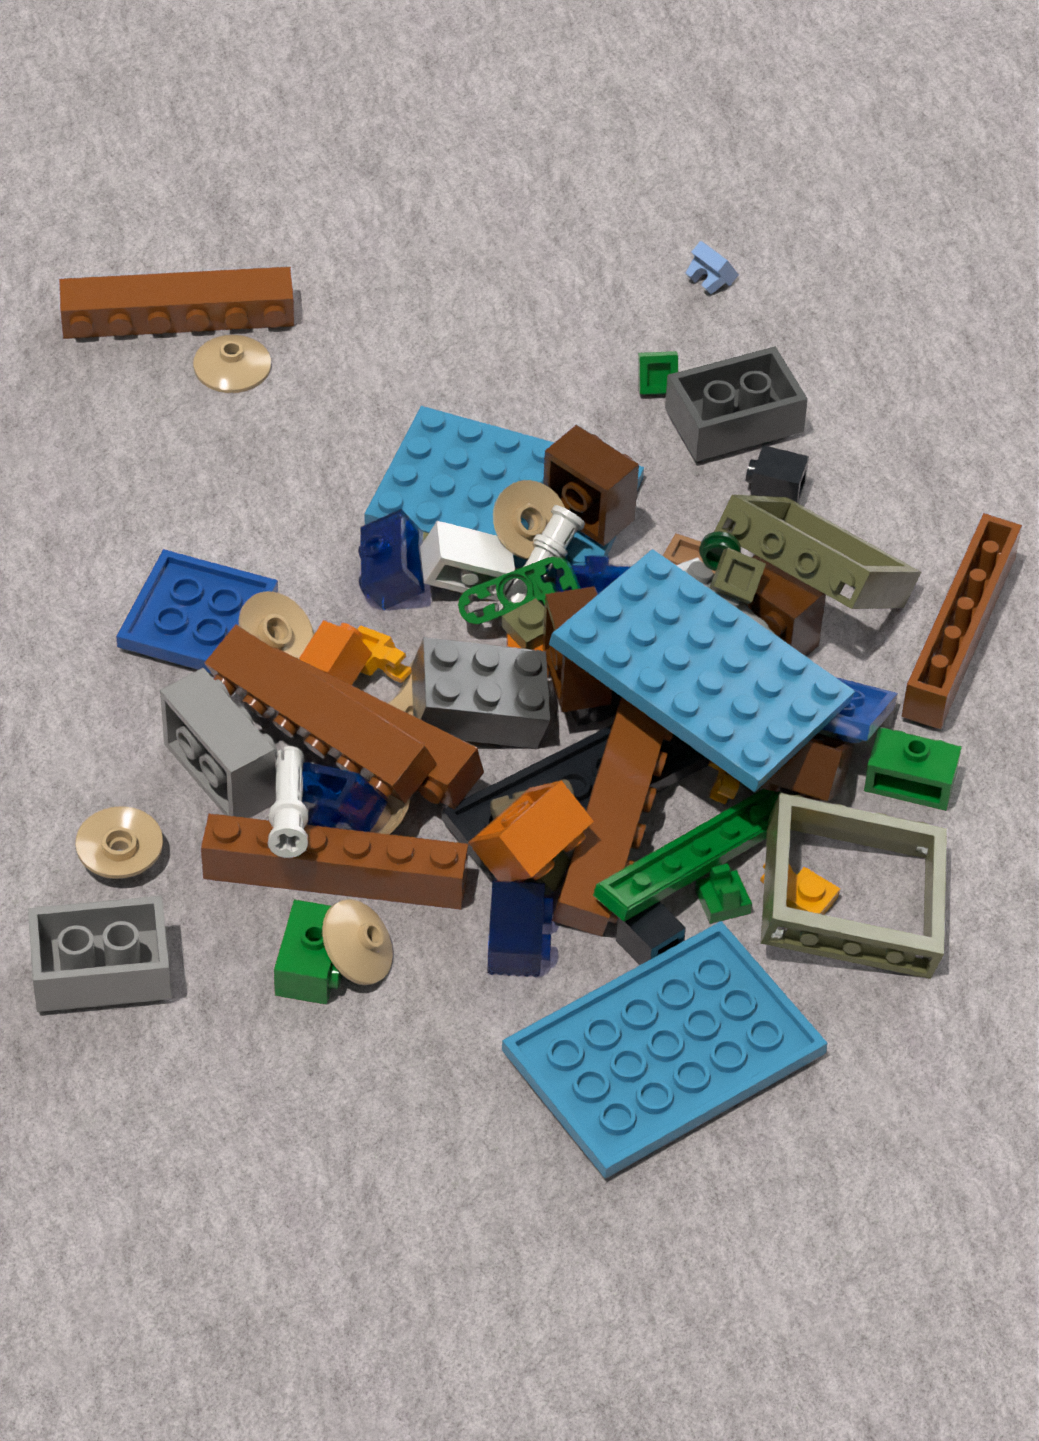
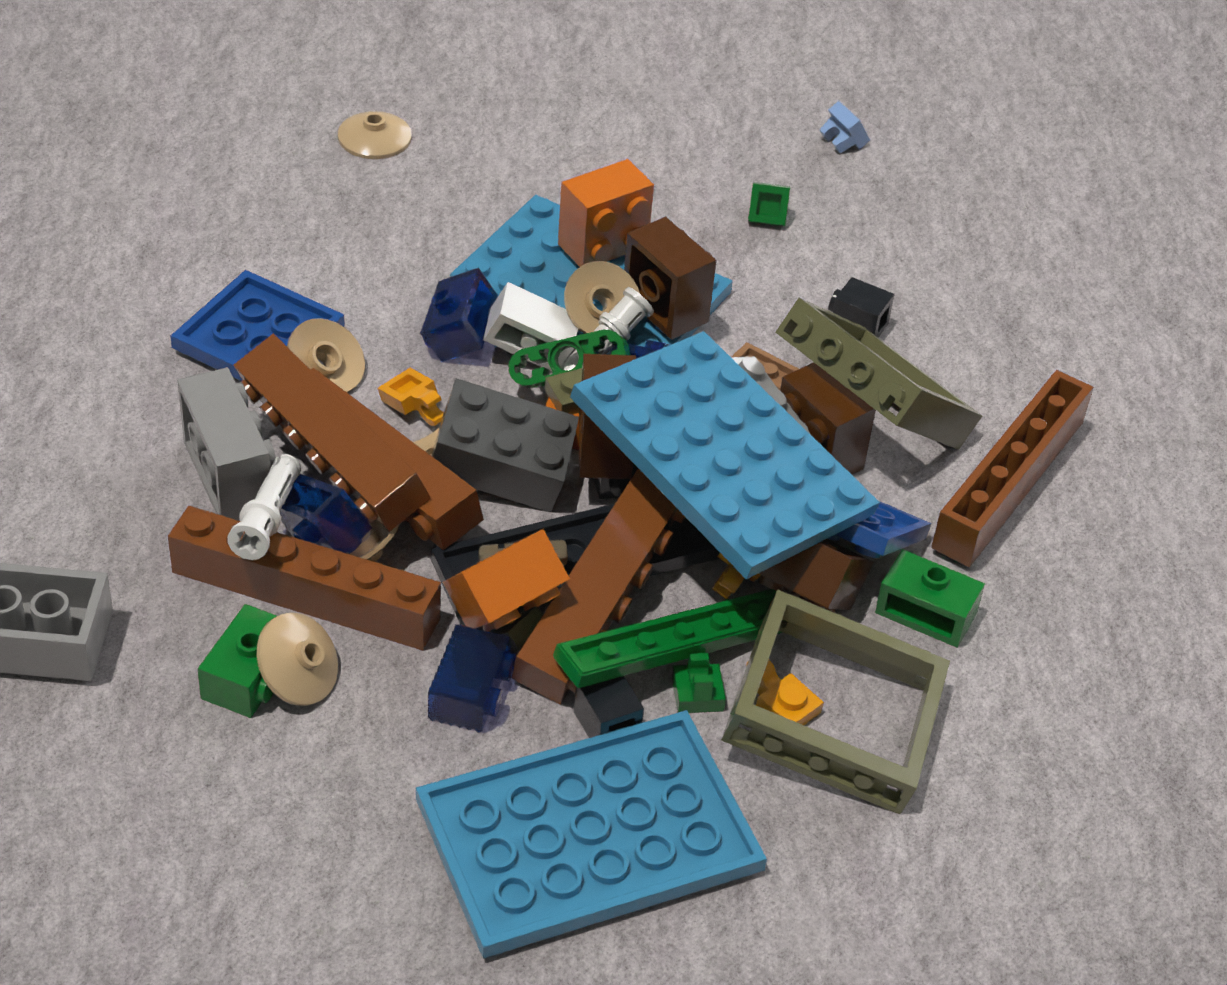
camera: 10 degrees right, 5 degrees down
(115, 830) = (96, 520): tan dish -> none
(176, 302) = (339, 75): dark orange brick -> none
(337, 651) = (374, 383): orange brick -> none
(508, 425) = (601, 210): none -> orange brick
(713, 546) = (776, 350): dark green plate -> none
(735, 403) = (835, 239): dark grey brick -> none
(737, 575) = (787, 375): olive plate -> none

